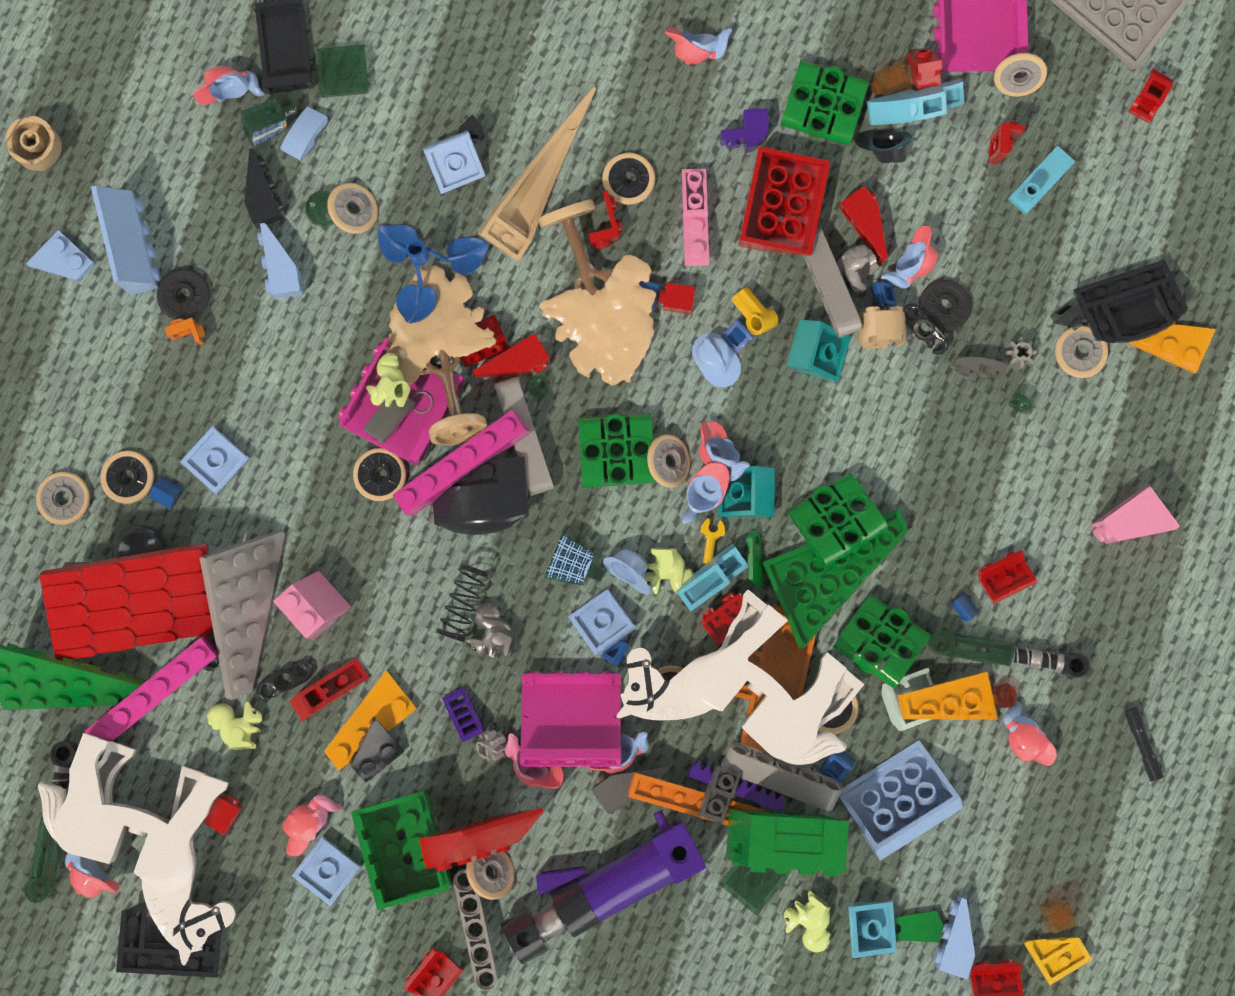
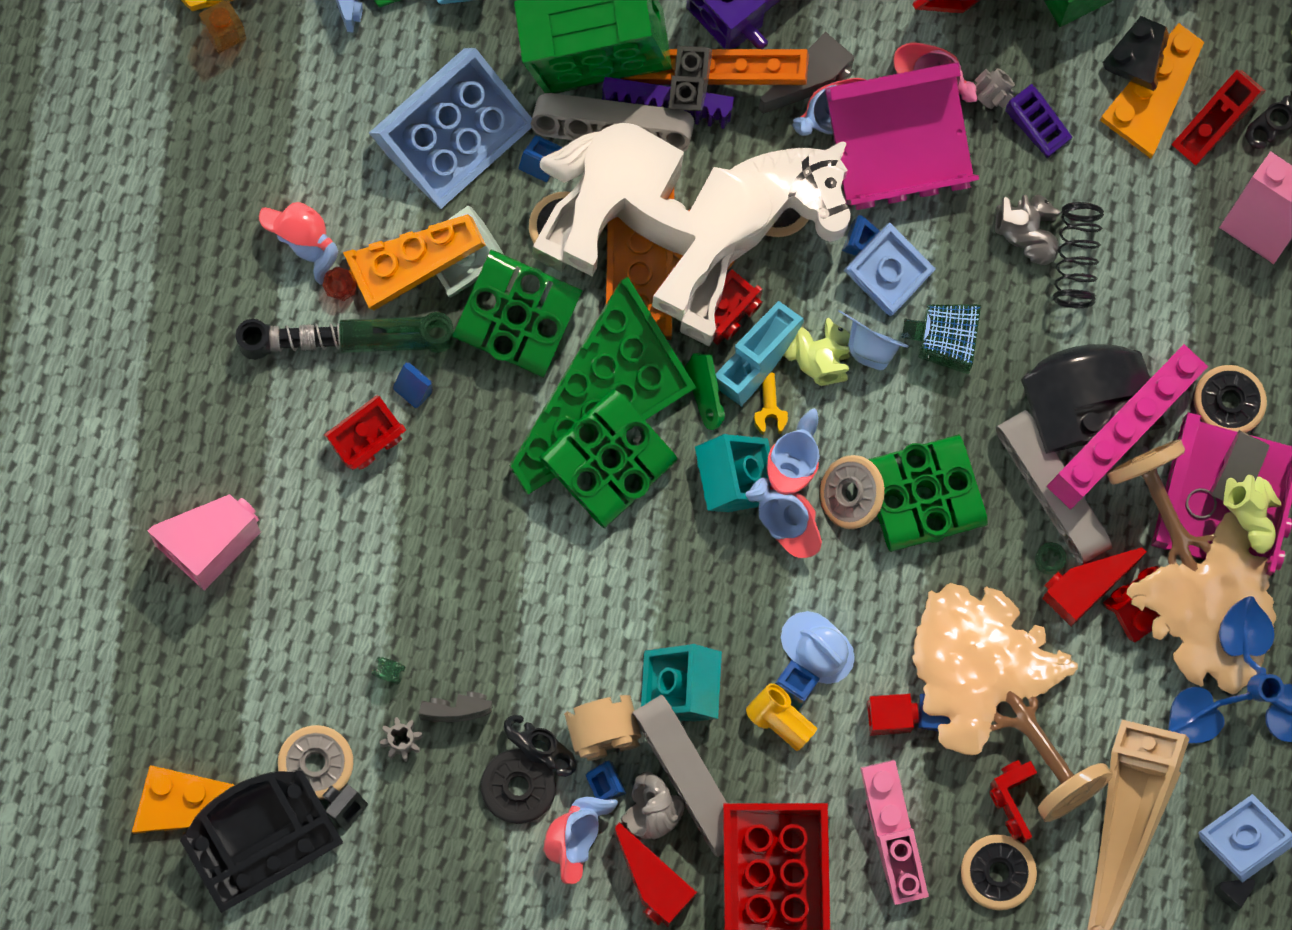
camera: 165 degrees right, 10 degrees down
(1148, 757) = (153, 277): black piece -> none

